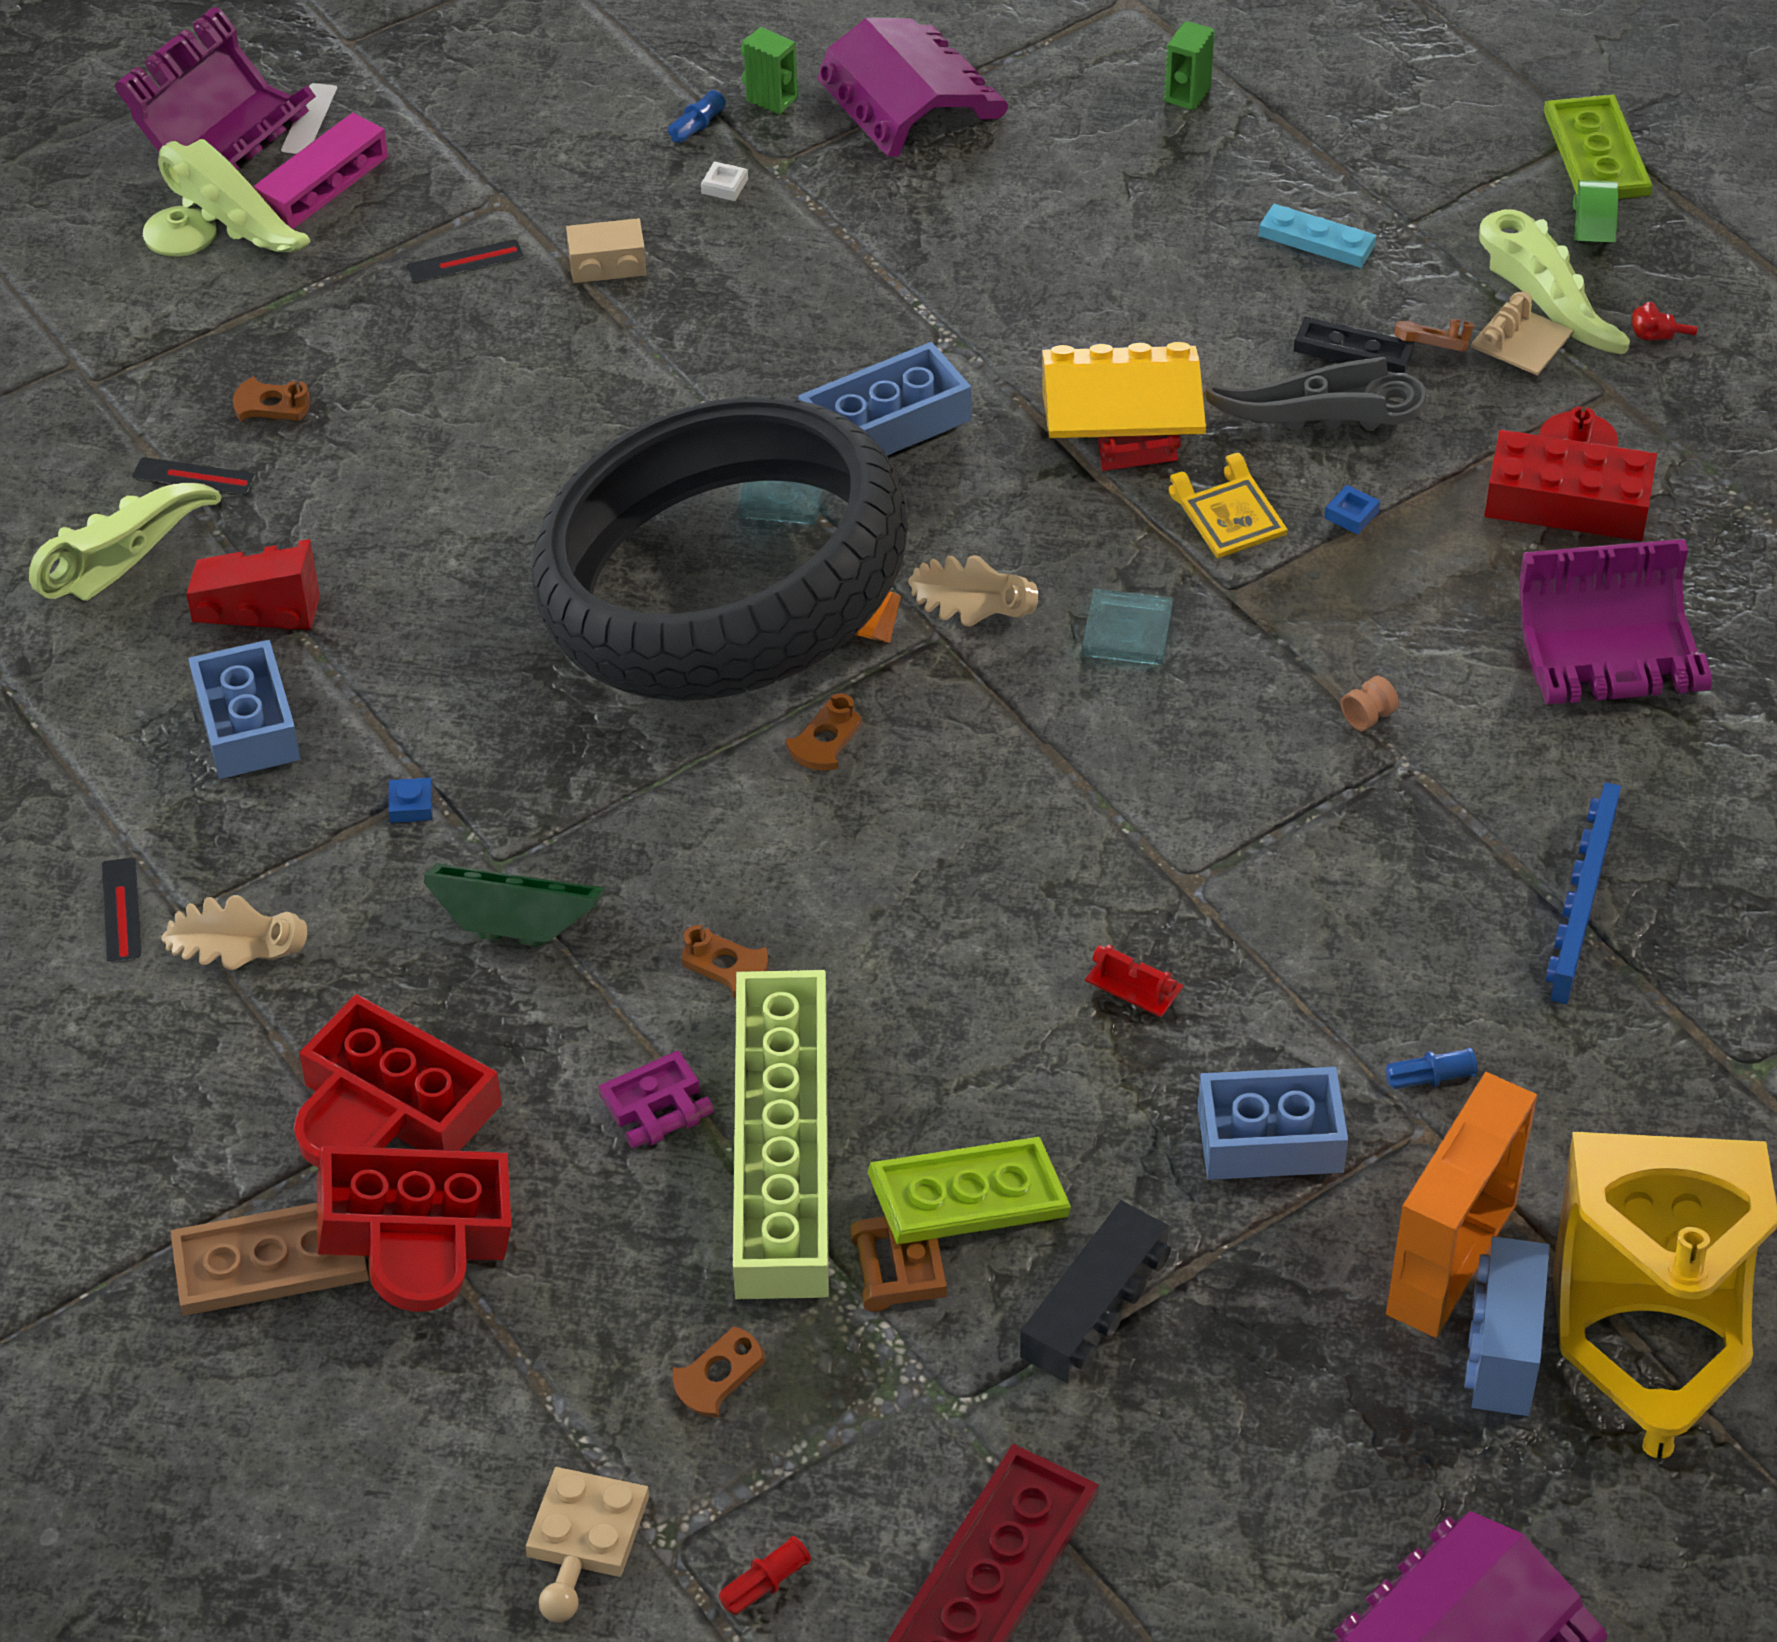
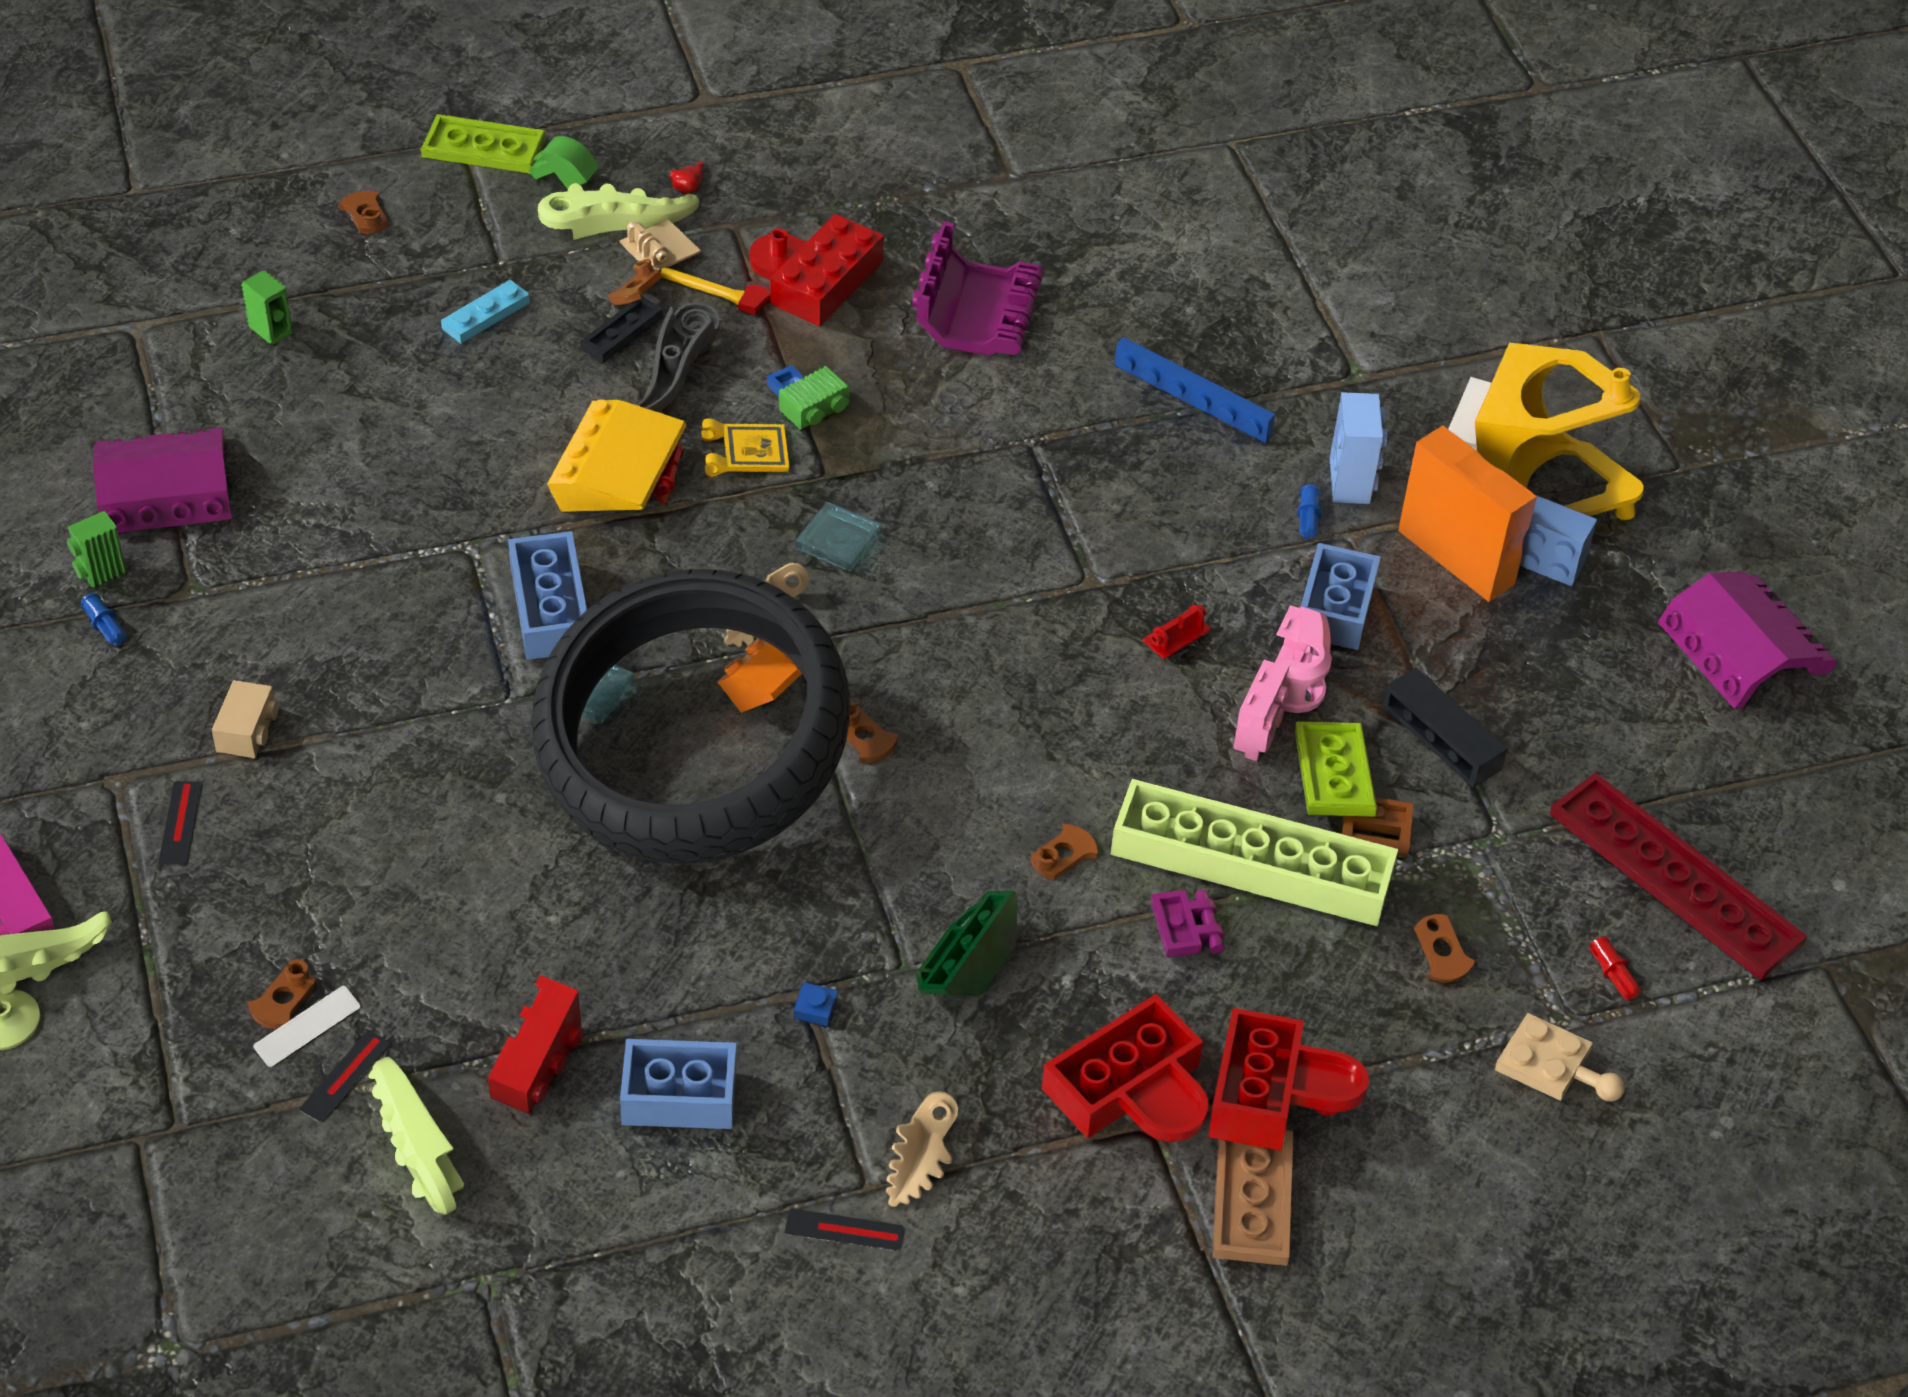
camera: 75 degrees left, 0 degrees up
(241, 427) = (306, 1026): none -> white sticker
(724, 181) = (195, 626): white tile -> none
(1046, 1086) = (1283, 684): none -> bright pink piece
(1339, 537) = (814, 398): none -> bright green brick
(1373, 701) = (980, 434): nougat wheel -> none
(1402, 104) = (372, 217): none -> dark orange piece
(1481, 438) = (749, 301): none -> piece
(1548, 1052) = (1357, 448): none -> light blue brick

